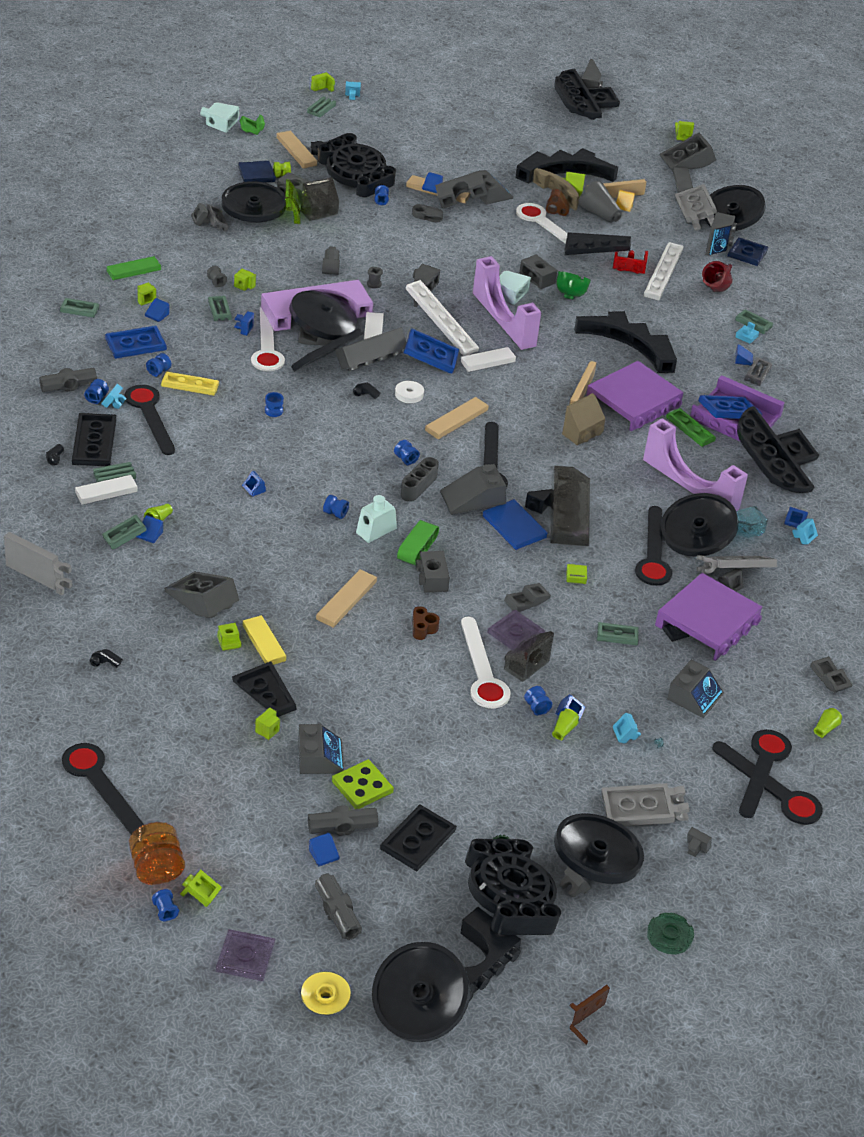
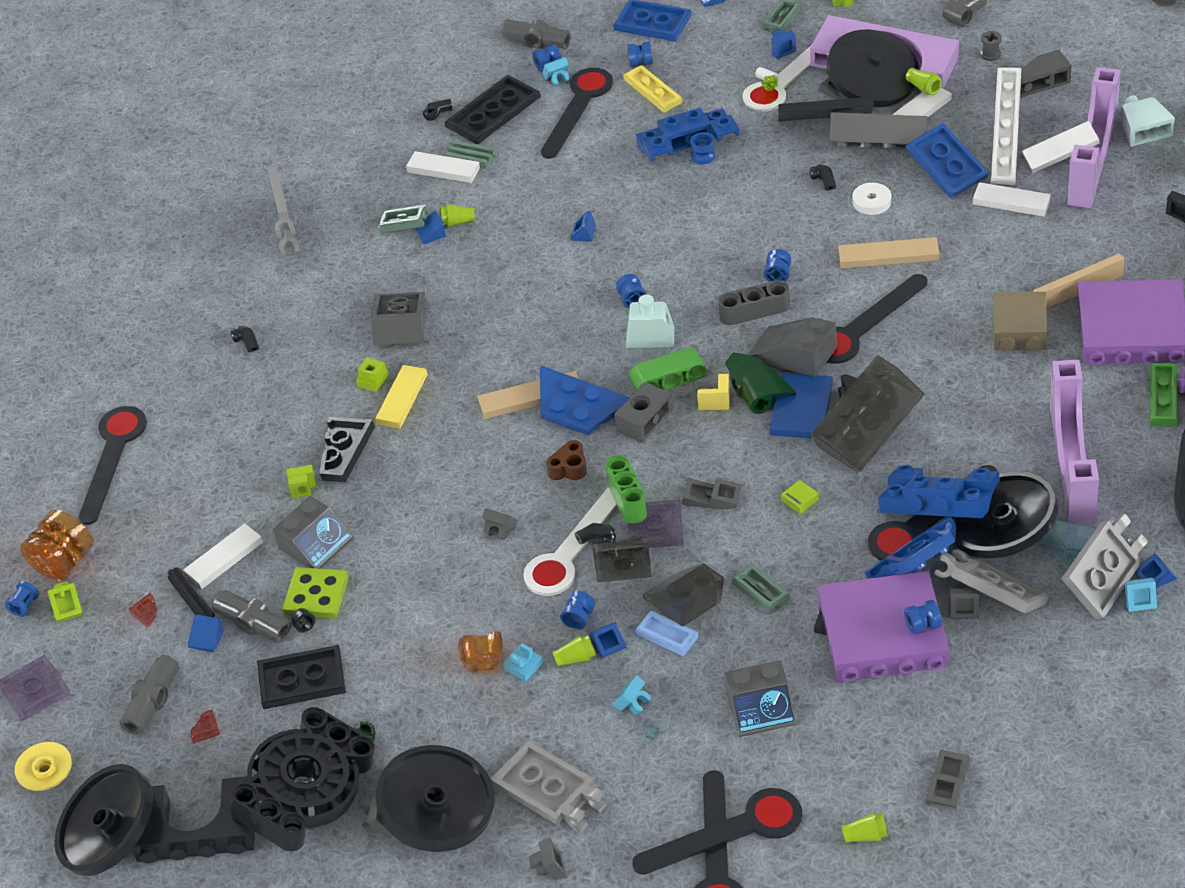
camera: 55 degrees right, 5 degrees up
(249, 397) = (676, 131): none -> blue bracket
(261, 862) = (145, 610): none -> clear red tile
(262, 346) = (770, 78): none -> arm
(270, 798) = (223, 556): none -> white tile
(280, 833) = (189, 593): none -> black axle
(365, 310) = (925, 81): none -> lime cone
(378, 802) = (307, 624): none -> black hinge
(384, 587) = (576, 402): none -> blue wing
(396, 903) = (205, 727): none -> clear red tile
(428, 676) = (498, 520): none -> dark grey tile
(463, 542) = (715, 398): none -> light yellow panel
(477, 521) = (755, 381): none -> dark green panel
(485, 318) = (1059, 146): none -> white tile
(485, 617) = (626, 489): none -> bright green beam
(490, 651) = (595, 530): none -> black arm
(517, 754) = (481, 653): none -> clear orange hair
(541, 748) = (523, 662): none -> medium azure tile
(587, 655) = (687, 593): none -> clear smoke slope
(598, 686) = (667, 633): none -> light blue tile
(656, 532) = (921, 495): none -> blue bracket
(683, 565) = (917, 551): none -> blue wing
(736, 594) = (922, 617): none -> blue wheel
(778, 523) = (1104, 565): none -> light grey tile

